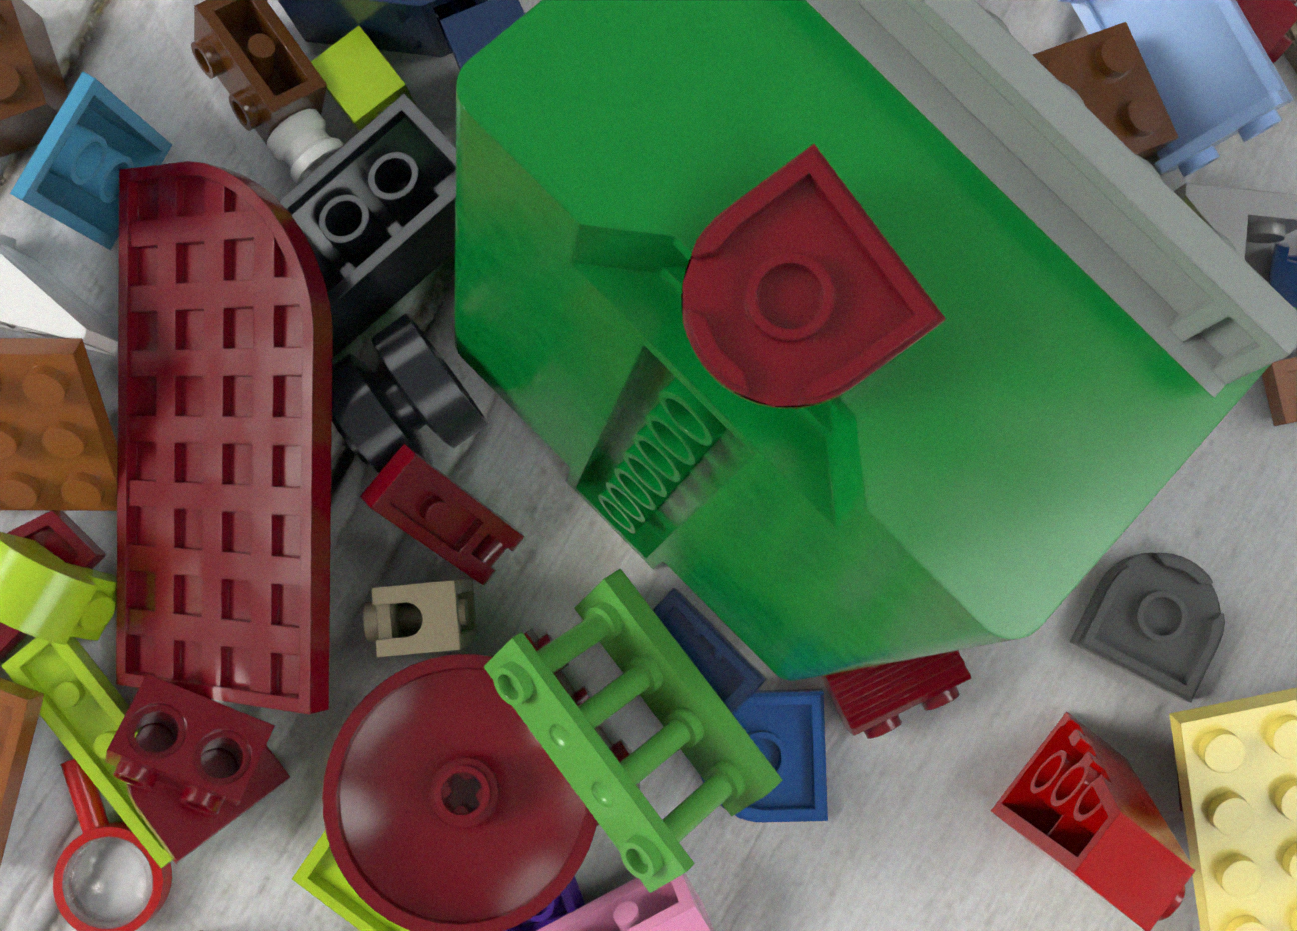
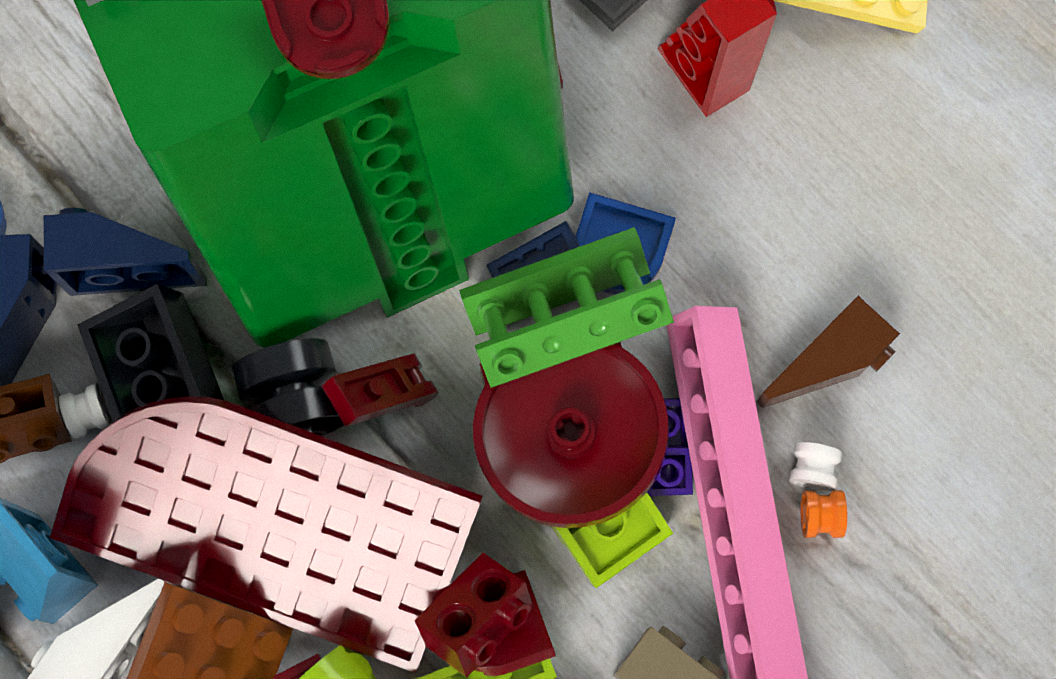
camera: 70 degrees left, 10 degrees down
(359, 78) = (58, 353): lime brick -> none
(438, 613) = (443, 427): dark tan brick -> none
(876, 695) = (593, 142): dark red brick -> none

